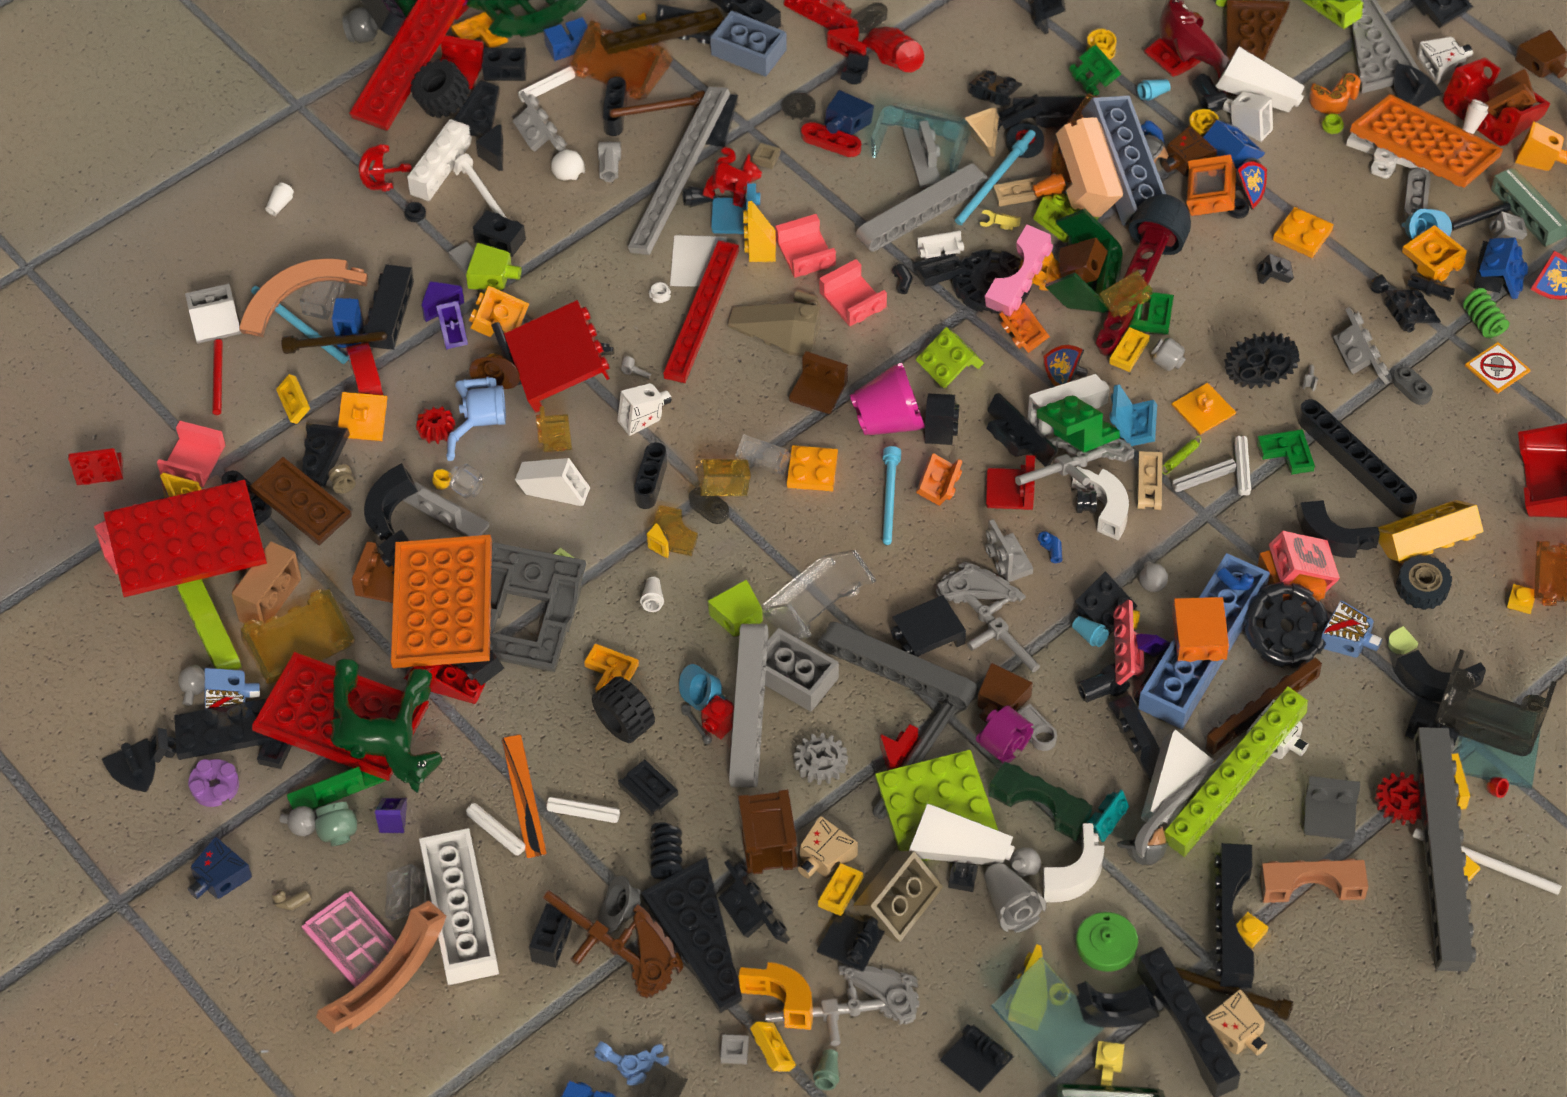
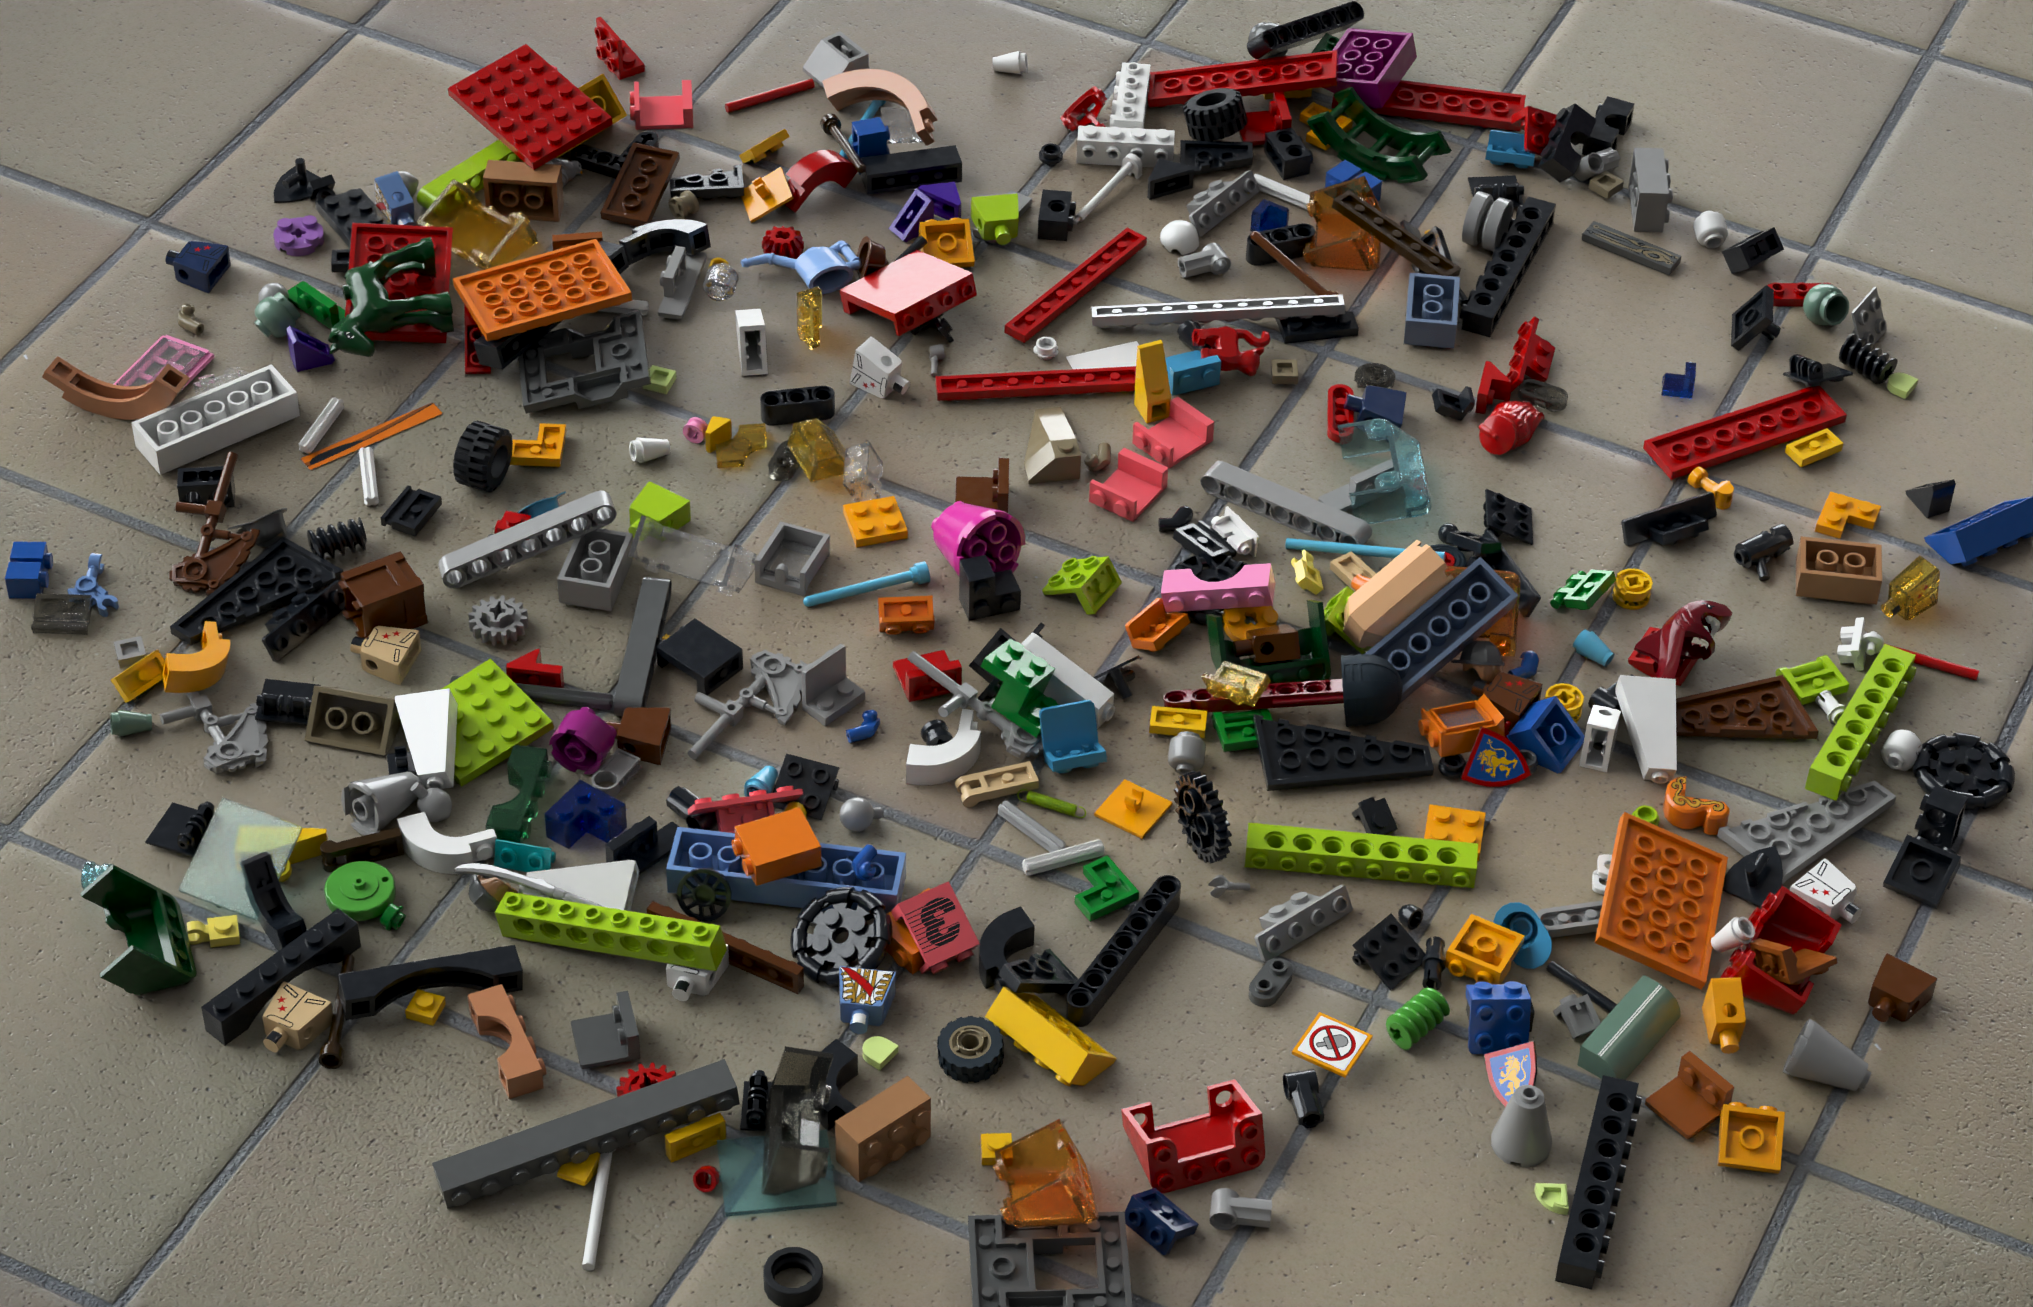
camera: 65 degrees right, 10 degrees down
(370, 131) = (1130, 96): none -> white brick
(578, 103) = (1269, 216): none -> clear blue panel
(593, 249) = (1075, 285): none -> red plate
(645, 554) = (690, 430): none -> bright pink bush
(838, 529) = (791, 558): none -> light grey window
(840, 889) = (345, 676): yellow plate -> none
(984, 129) = (1424, 517): tan slope -> none
(1058, 929) = (364, 848): none -> dark brown plate
(1080, 757) = (584, 811): none -> clear blue brick
(1144, 926) = (393, 917): none -> green plate
(1204, 277) = (1327, 756): none -> black wing
(1209, 699) = (704, 894): none -> black wheel
(1318, 282) = (1361, 855): none -> lime brick
(1372, 512) = (1038, 974): none -> black wing
(1500, 653) = (883, 1129): none -> medium nougat brick
(1527, 401) = (1303, 1091): none -> black piece

